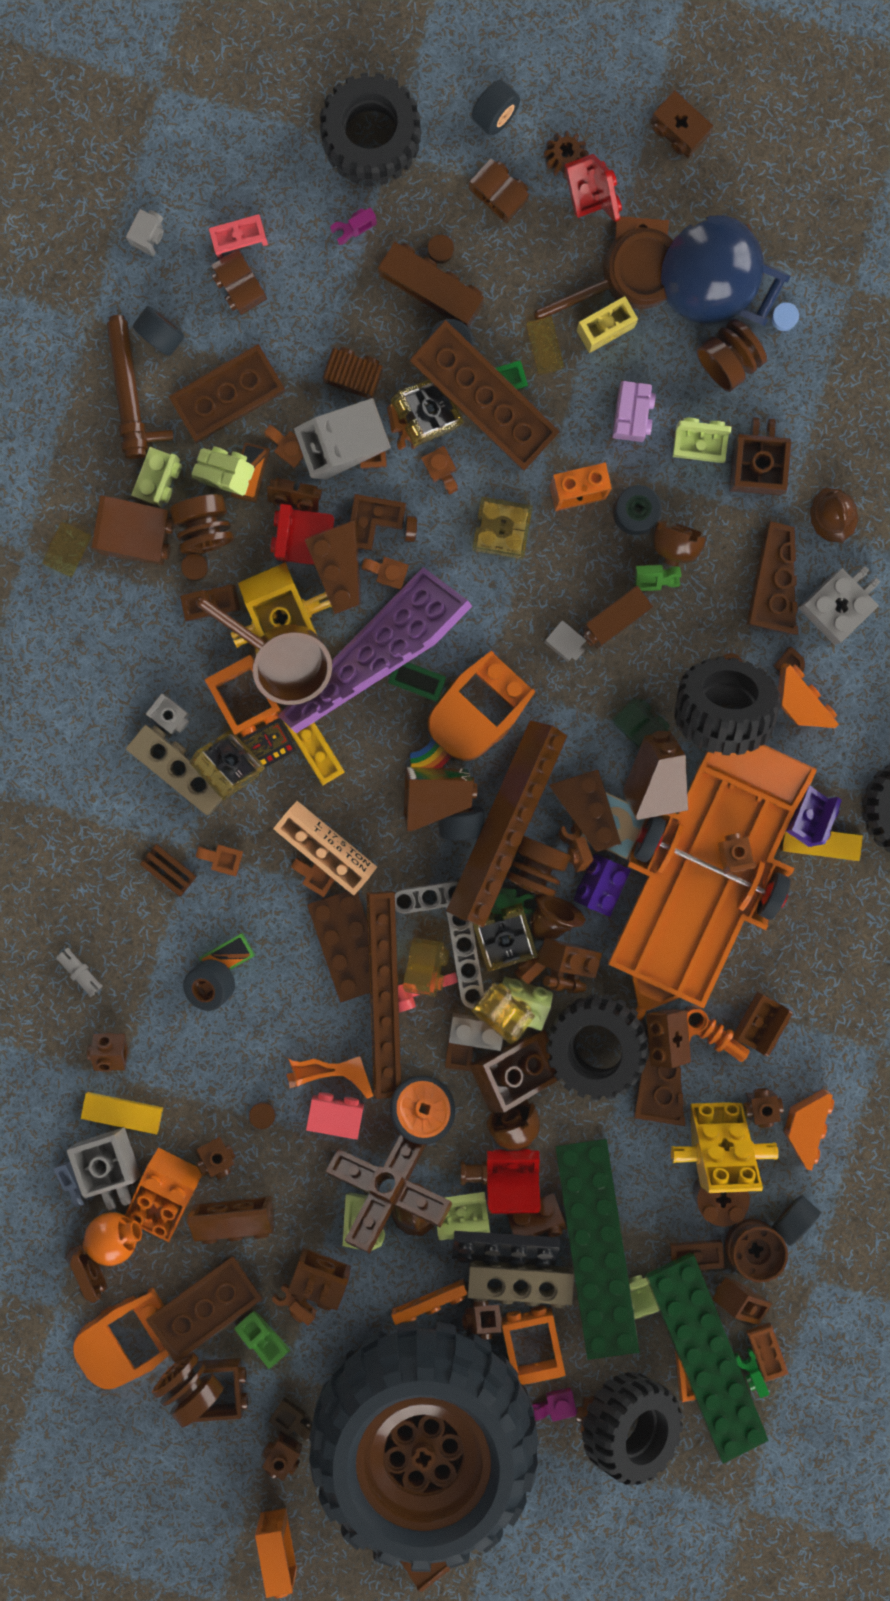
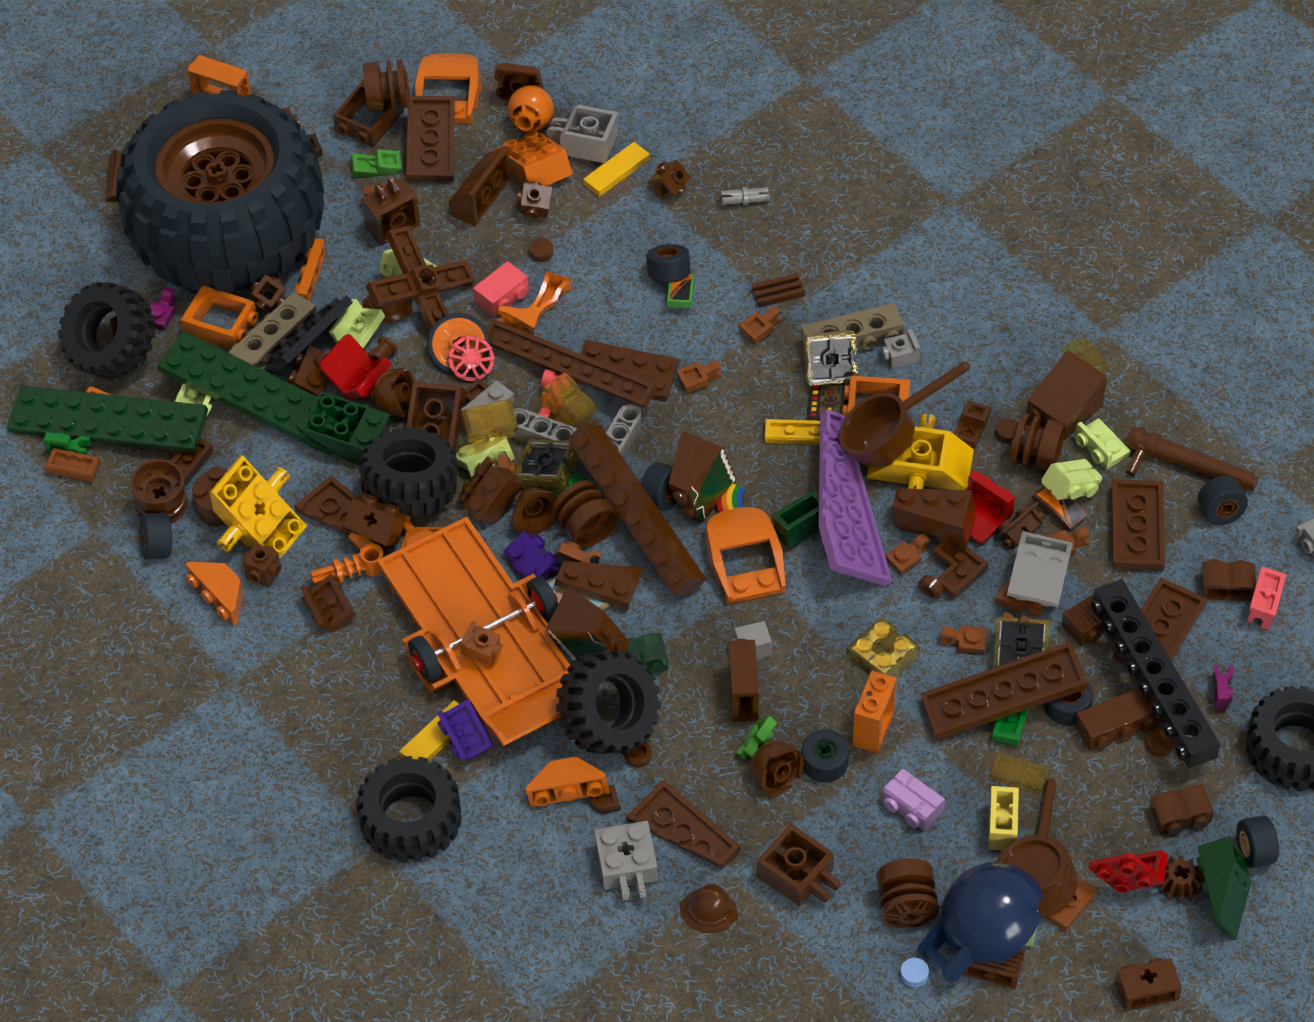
camera: 125 degrees right, 35 degrees down
(325, 312) = (1171, 615): none -> reddish brown plate
(325, 848) = (714, 388): light nougat brick -> none
(430, 1087) = (471, 358): none -> coral wheel
(438, 193) = (1192, 750): none -> black brick
(546, 114) = (1225, 883): none -> dark green slope
(582, 1140) = (344, 425): none -> dark green slope
(701, 440) = (850, 837): yellowish green bracket -> none
(741, 1301) = (121, 465): reddish brown slope -> none

